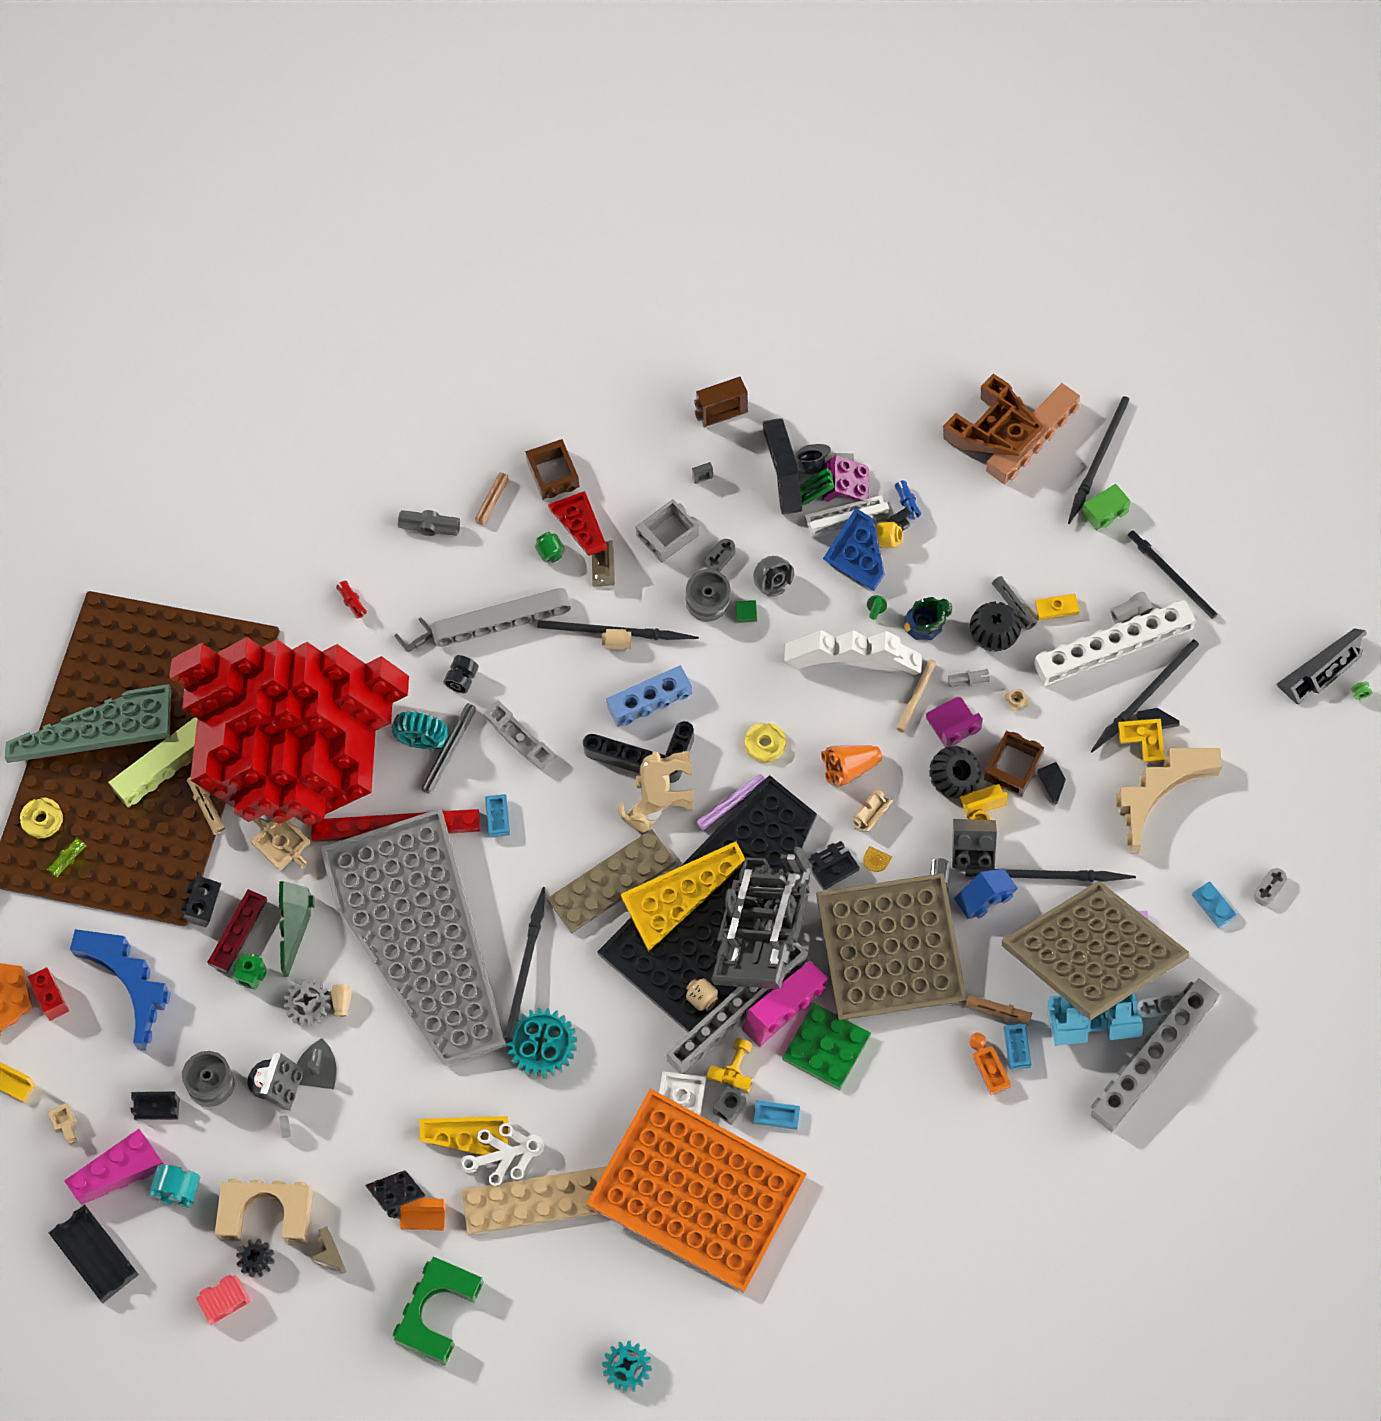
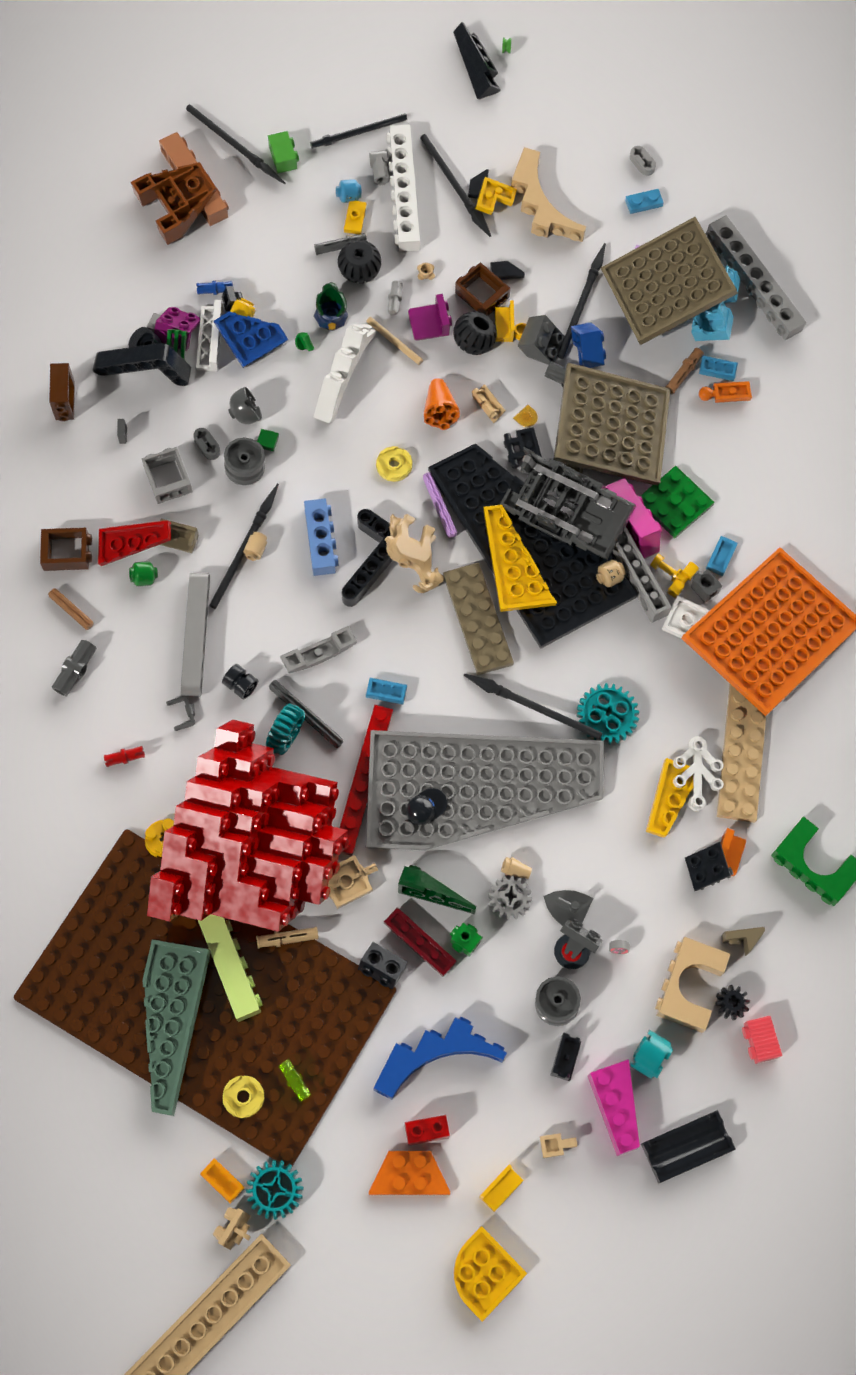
camera: 80 degrees left, 5 degrees up
(377, 889) = (426, 806): none -> black cap
(1085, 588) = (348, 190): none -> dark azure head

